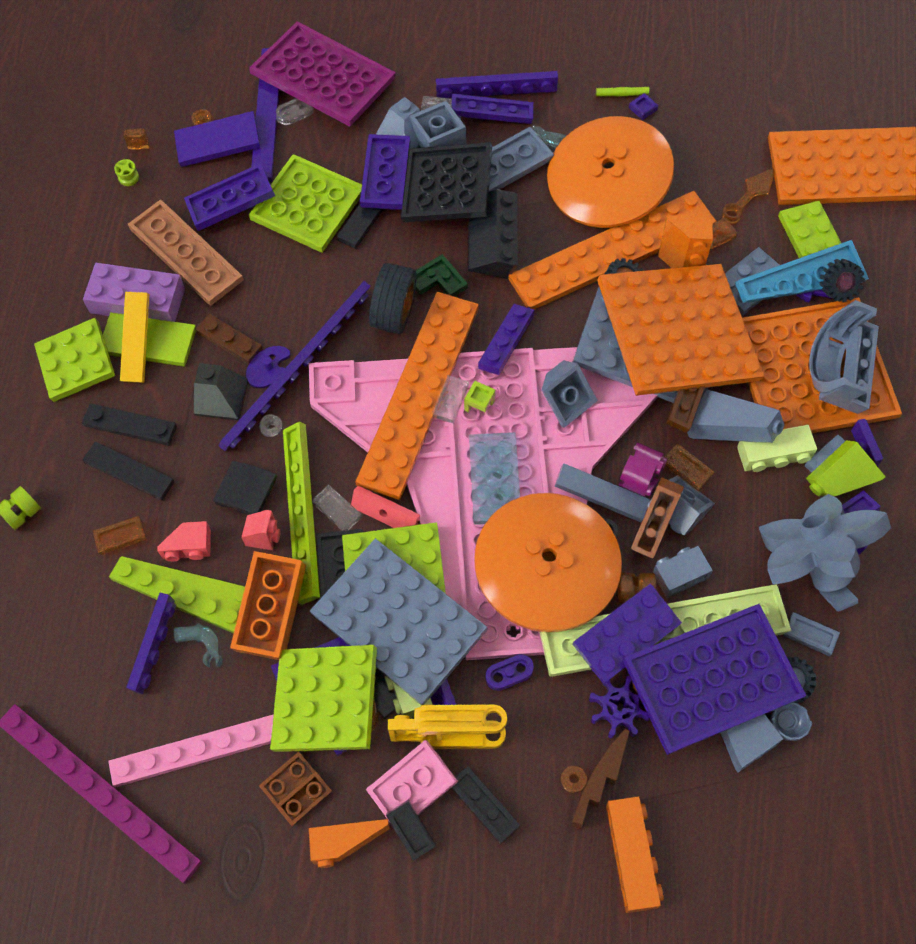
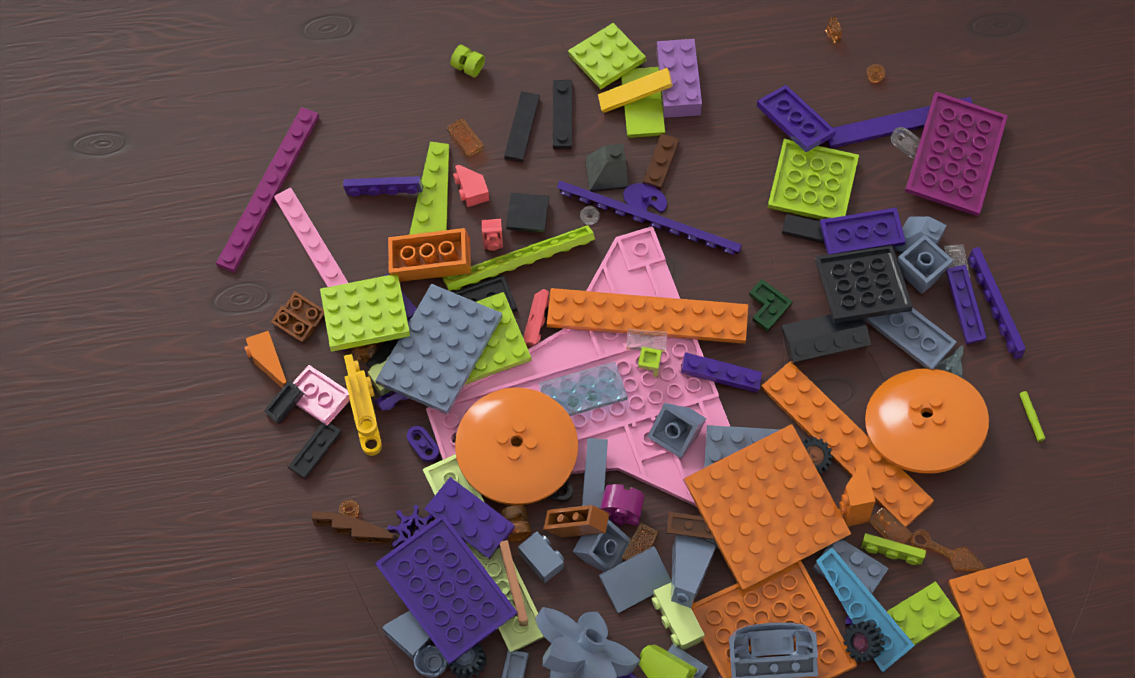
camera: 75 degrees right, 0 degrees up
(126, 172) = (801, 31): lime wheel -> none
(185, 252) = (732, 103): nougat plate -> none
(201, 634) = (400, 218): clear light blue piece -> none
(217, 139) = (856, 91): dark purple tile -> none
(336, 508) = (530, 284): clear plate -> none
(392, 298) = (726, 269): black wheel -> none
(633, 855) = (300, 562): orange brick -> none
(643, 106) = (1021, 438): dark purple tile -> none
(716, 602) = (513, 583): none -> nougat tile
(728, 479) = (635, 579): none -> sand blue tile
(740, 237) = (893, 549): none -> lime plate

